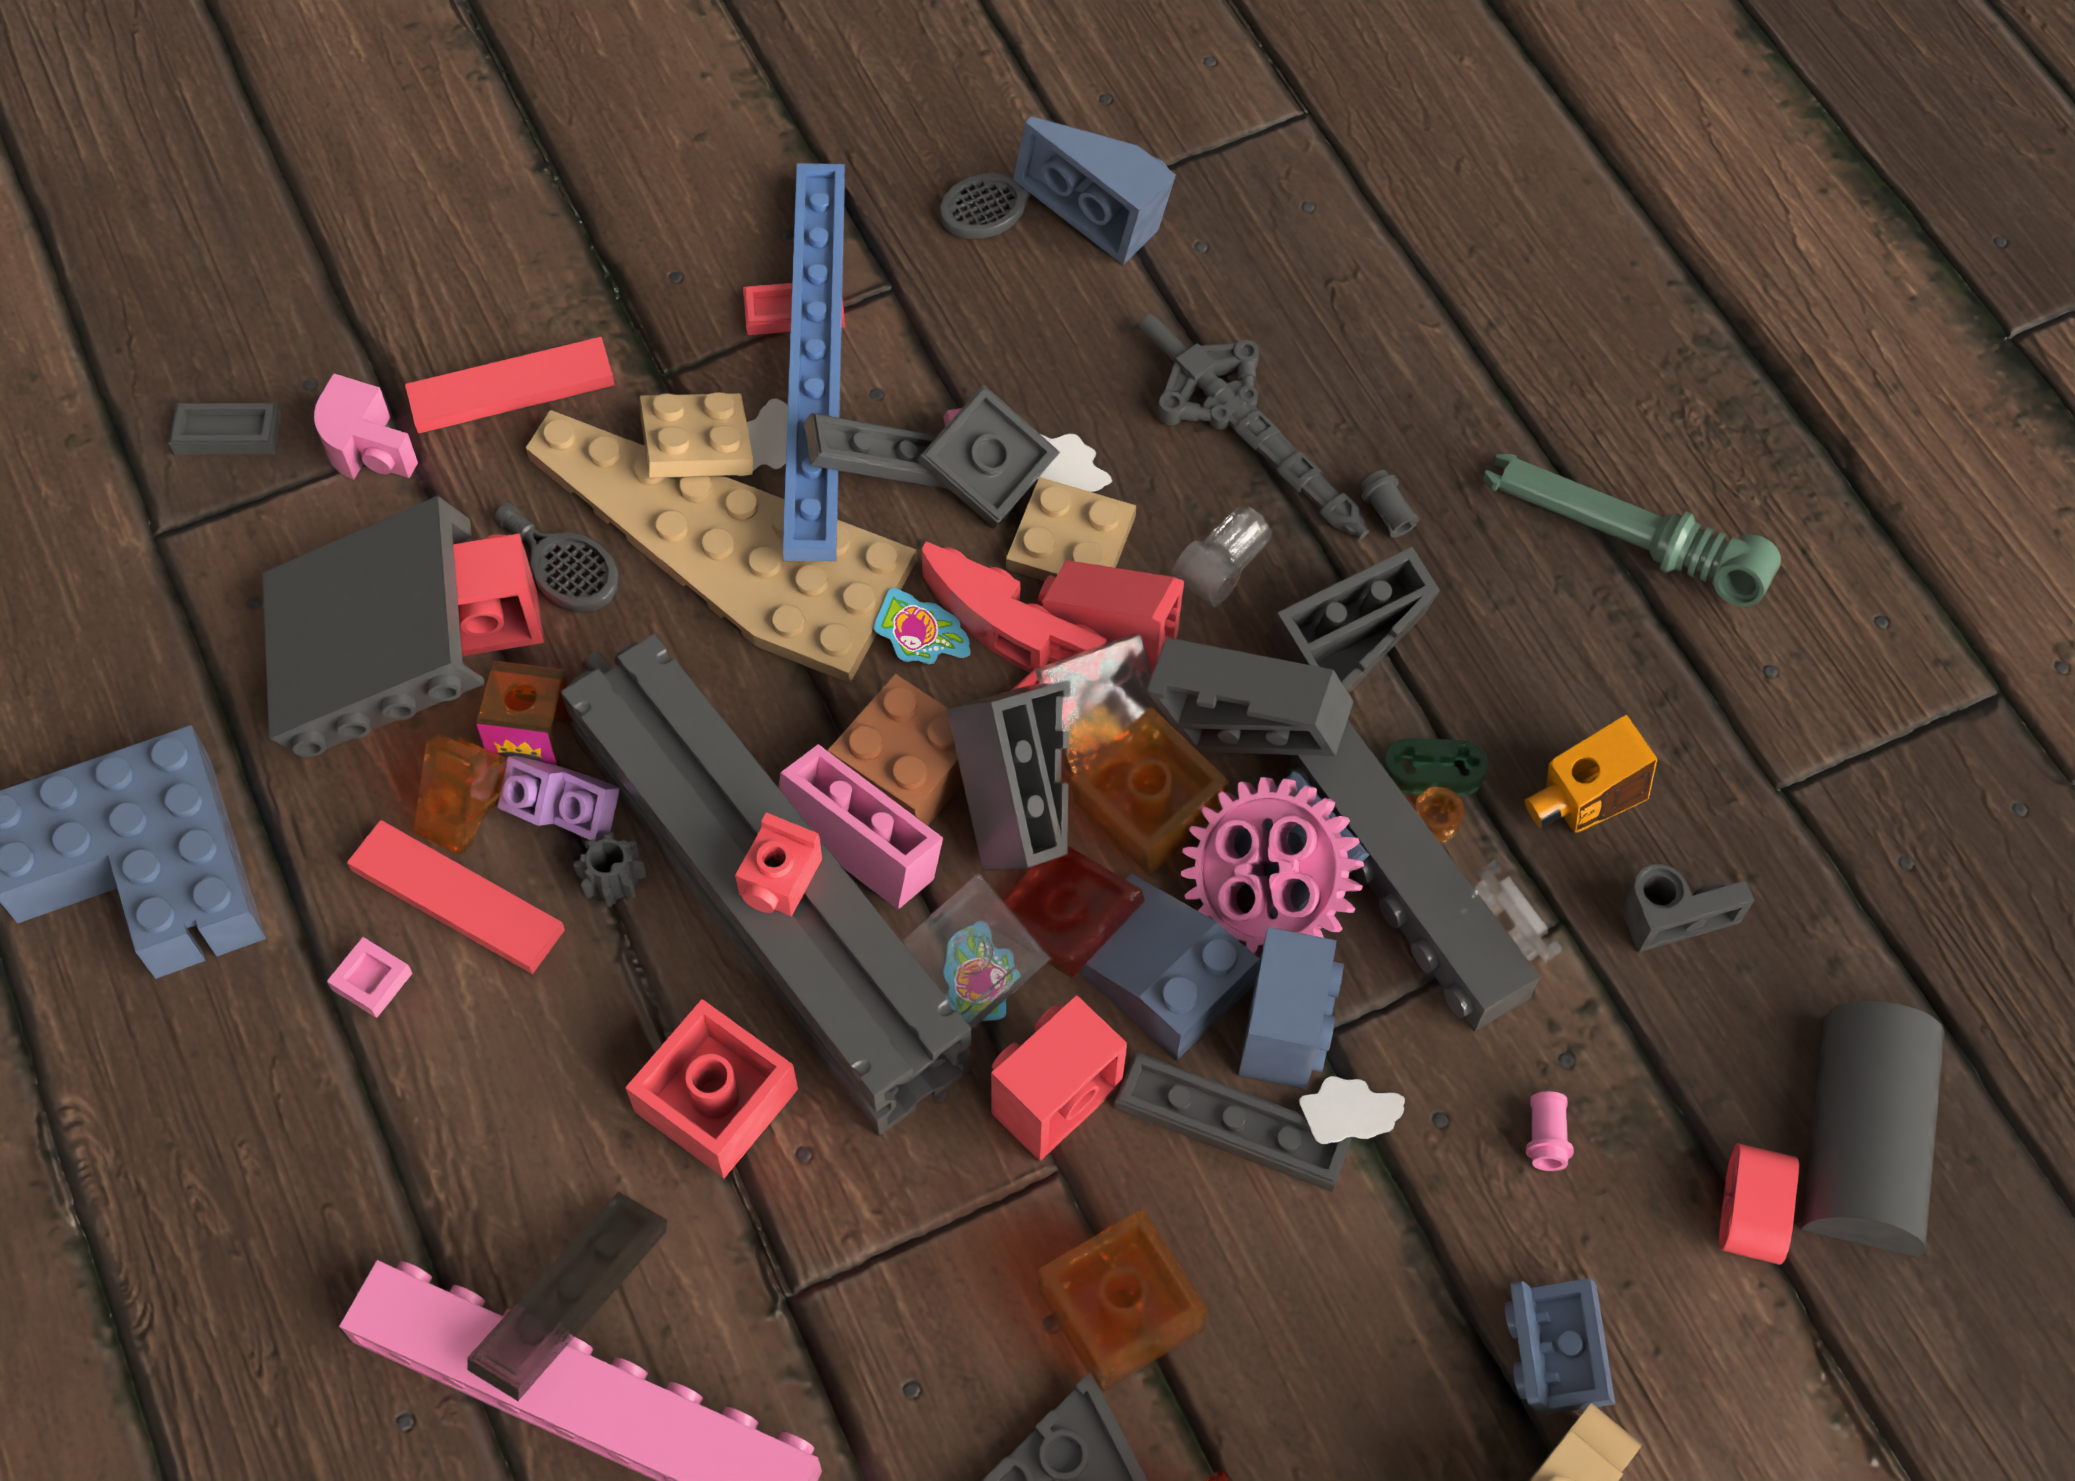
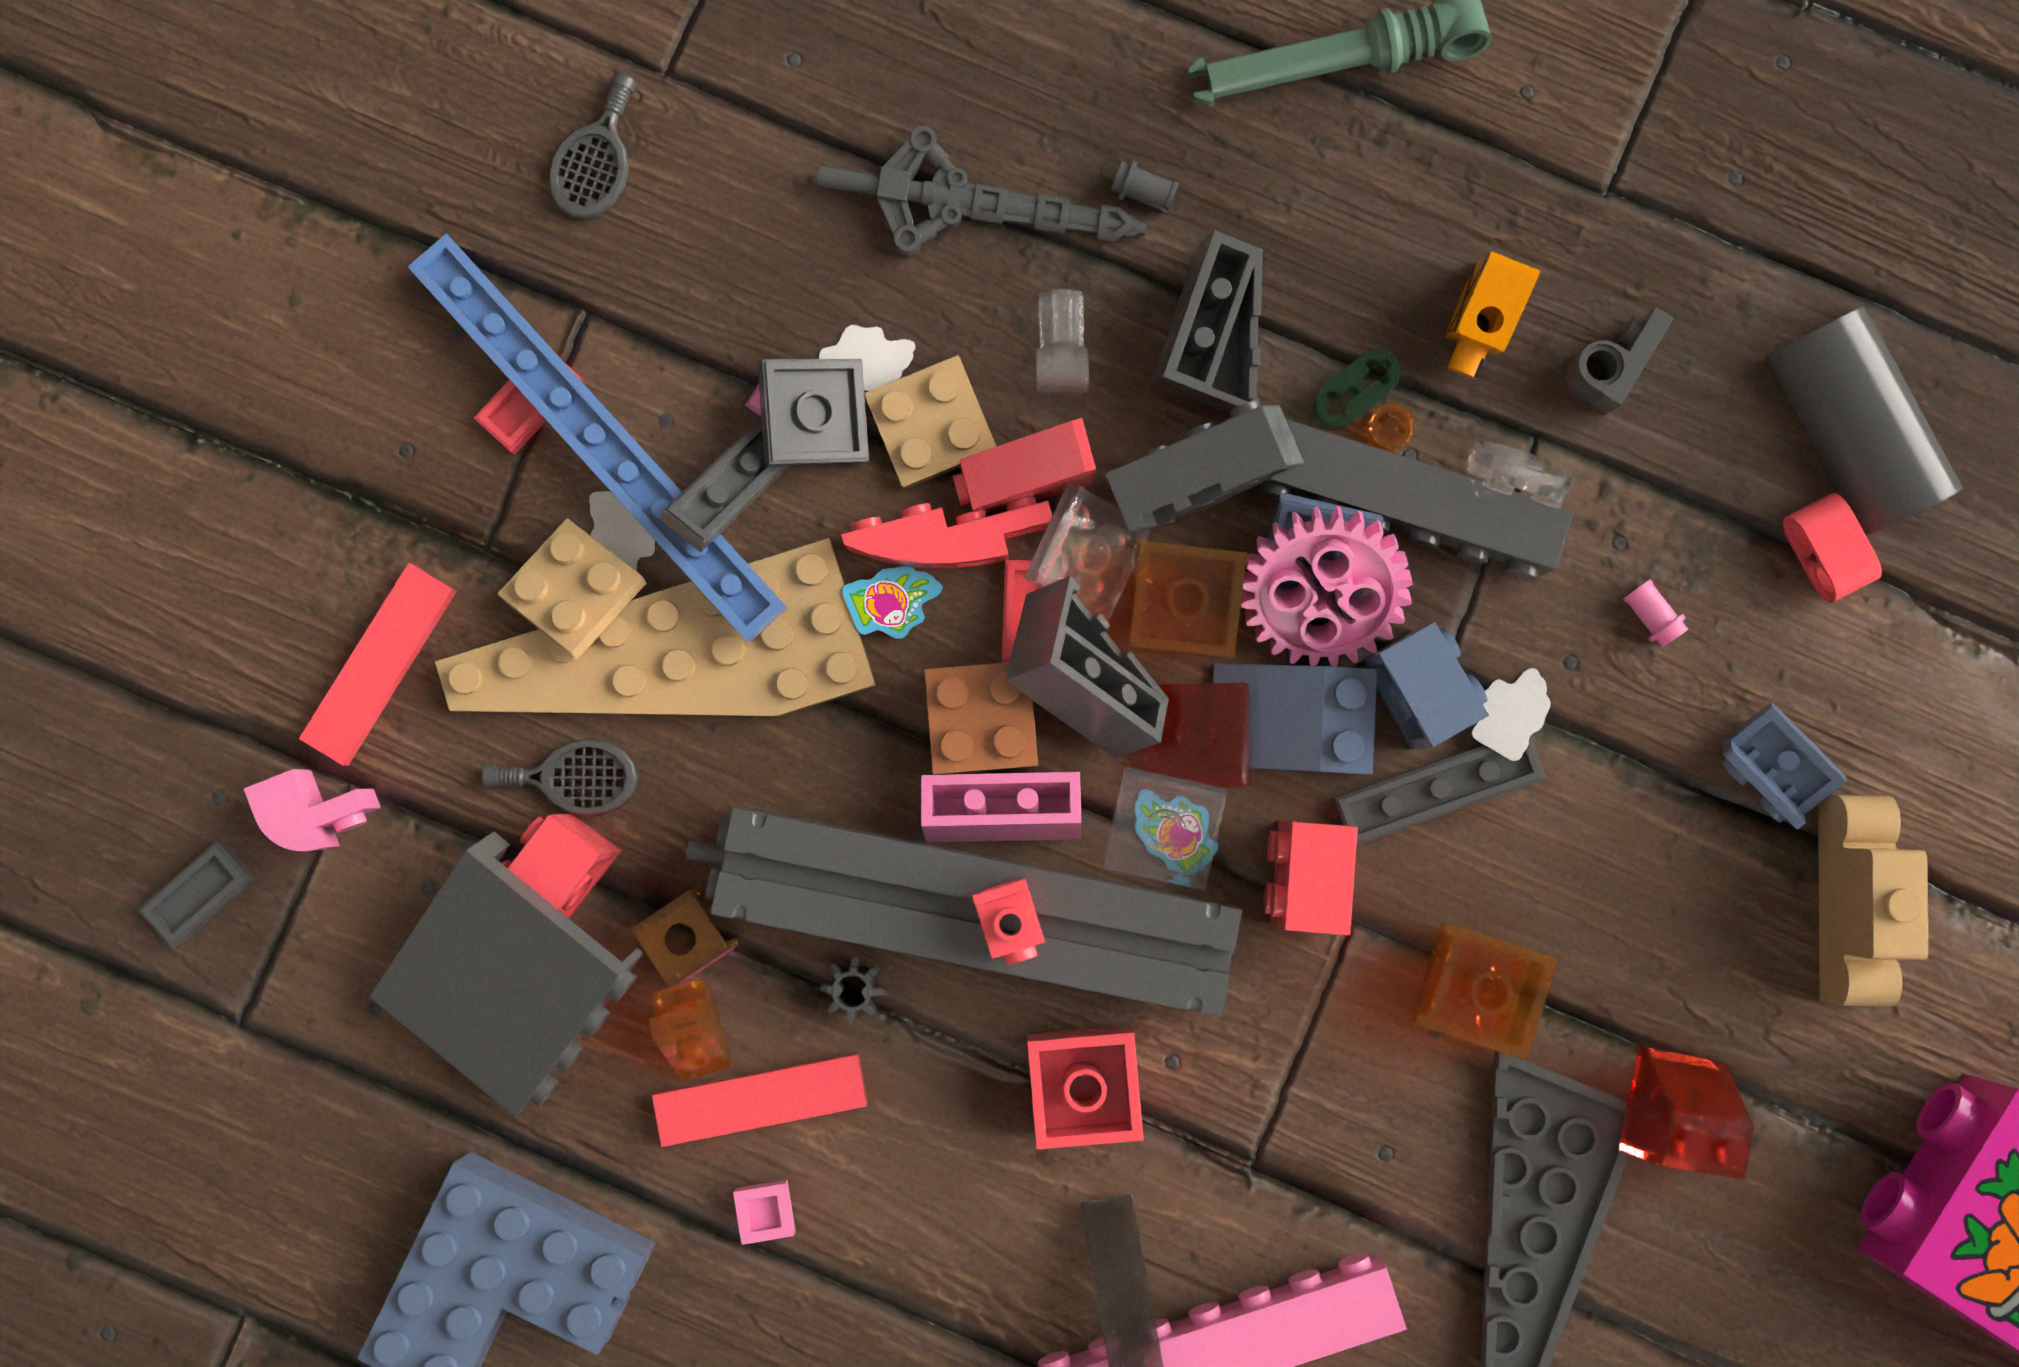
camera: 40 degrees left, 25 degrees up
(558, 797) = (752, 971): lavender slope -> none
(1095, 184) = (682, 86): sand blue slope -> none

